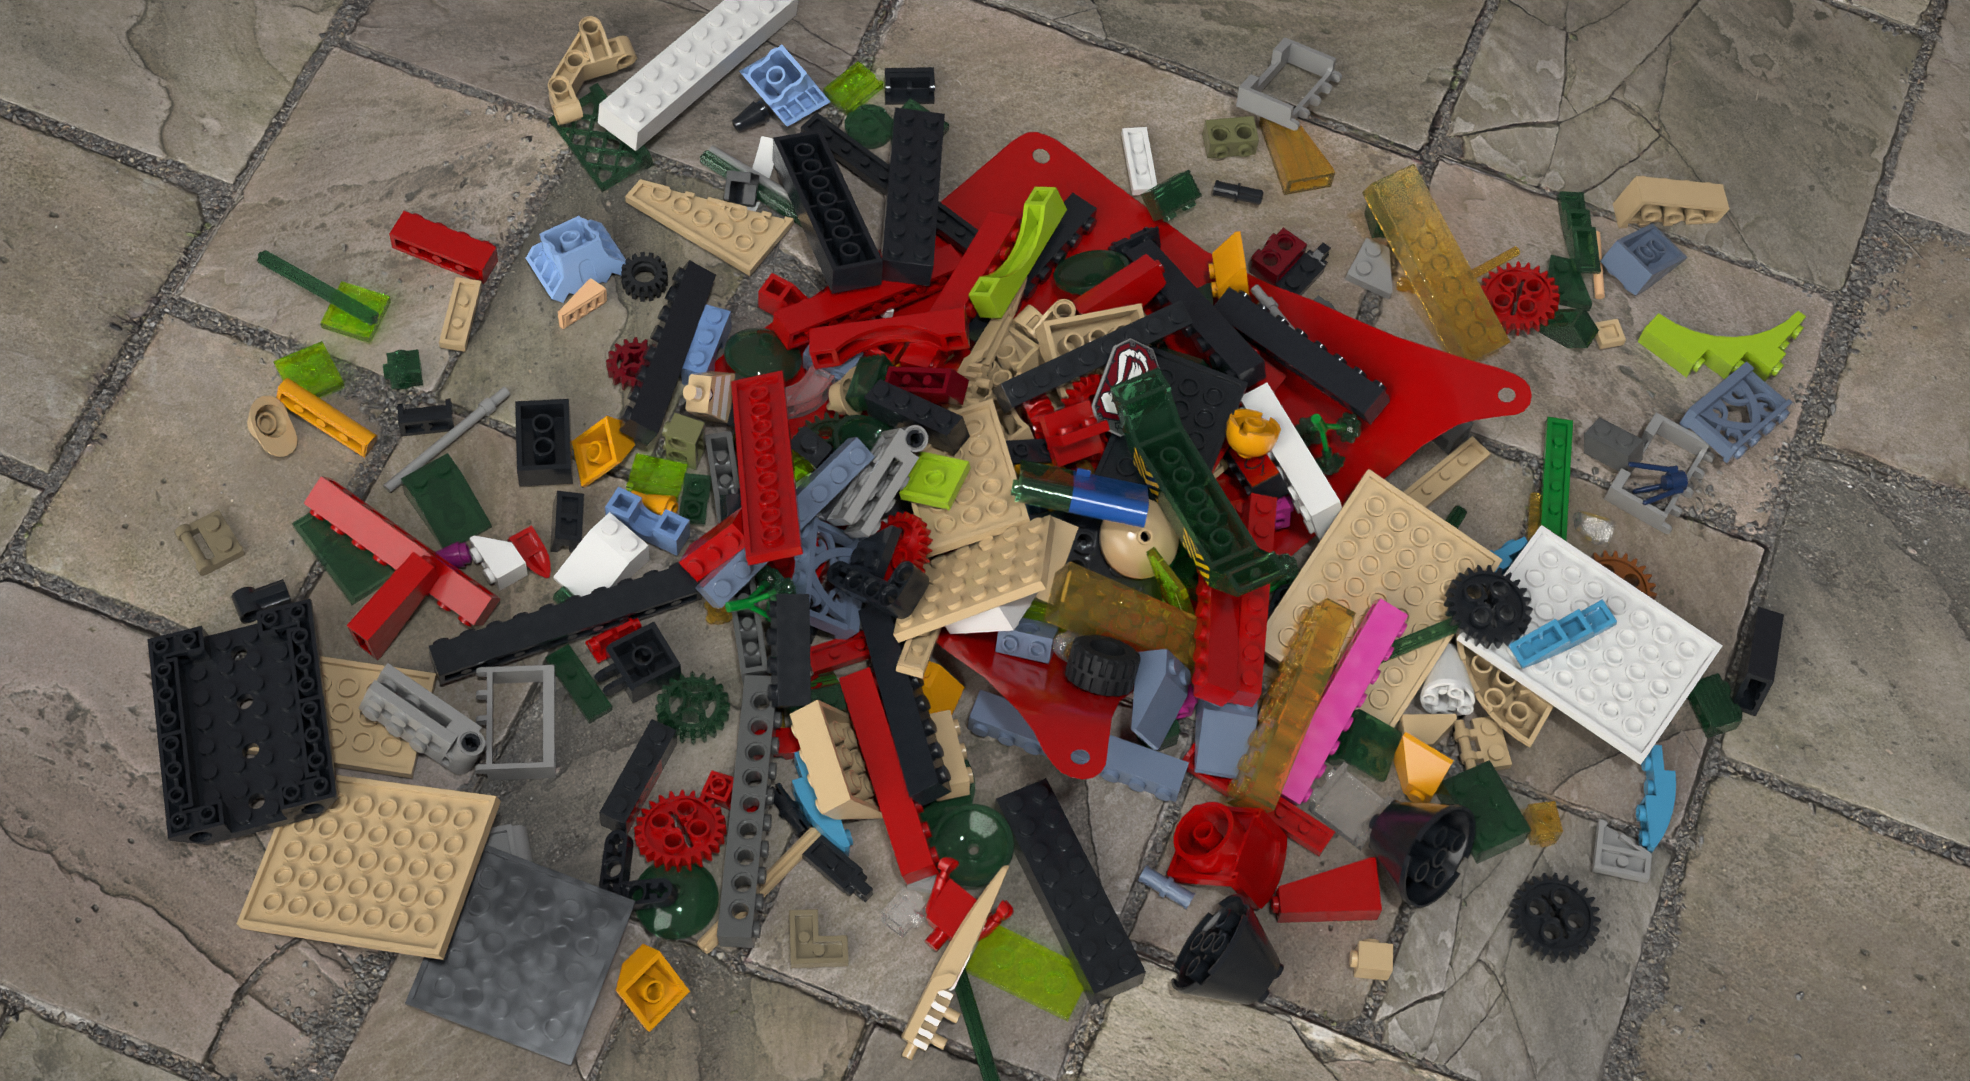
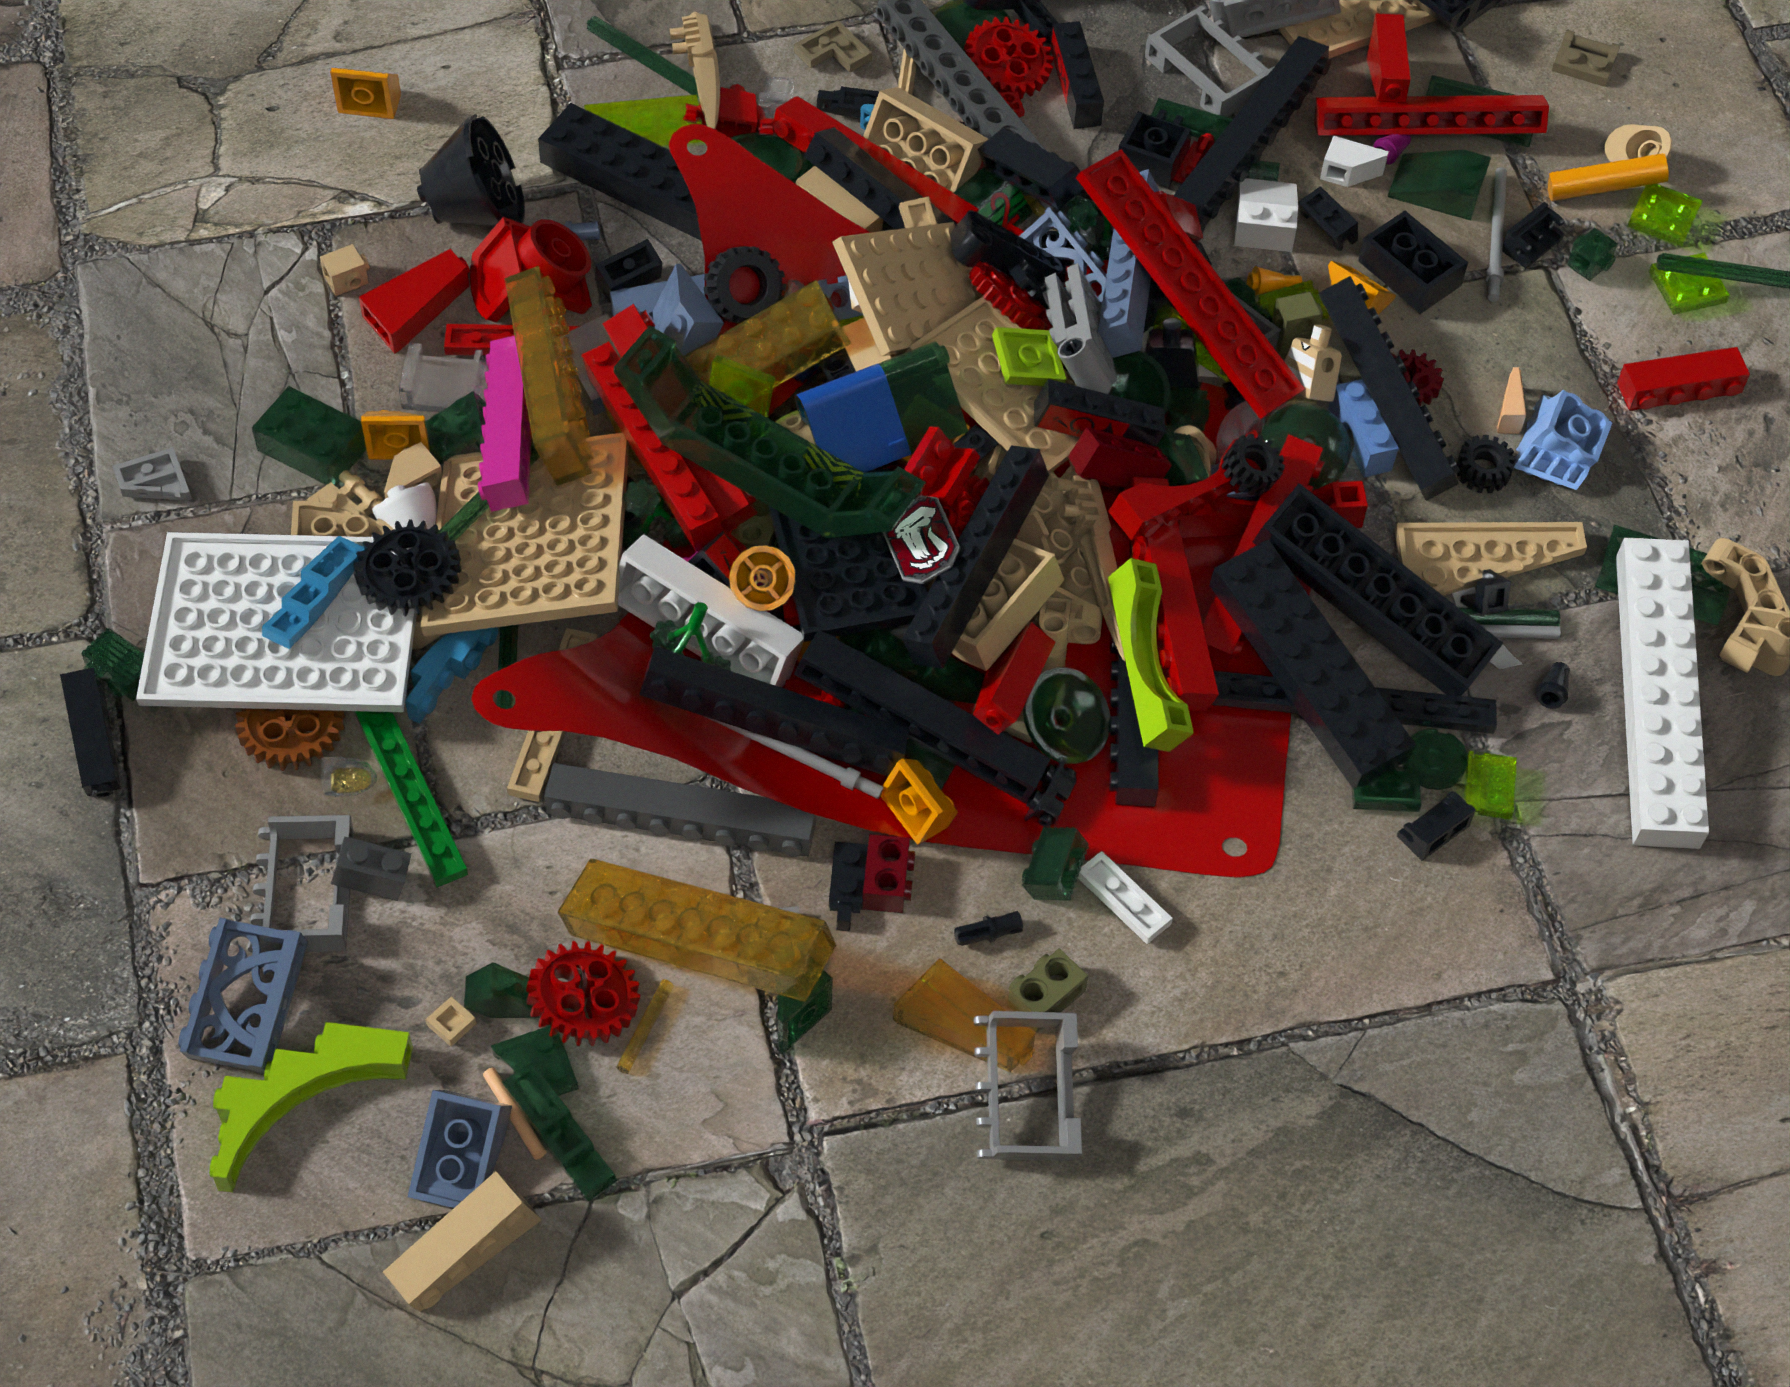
camera: 150 degrees right, 5 degrees down
(251, 600) = (1499, 34): black piece -> none
(460, 314) = (1602, 333): tan plate -> none
(532, 551) = (1340, 186): red plate -> none
(664, 531) = (1281, 253): medium blue arch -> none
(707, 693) = (1082, 139): clear green gear -> none
(784, 86) = (1560, 736): light blue slope -> none
(840, 306) = (1262, 455): none -> black tyre
(1149, 807) = (629, 268): none -> black brick
(1422, 847) = (358, 352): black cone -> none
(1532, 926) = (191, 389): black gear -> none
(1534, 510) = (416, 749): clear yellow bar -> none
(1544, 823) = (246, 460): clear yellow brick -> none
(1659, 800) = (137, 535): dark azure slope -> none
(1673, 481) = (283, 869): dark blue plant -> none

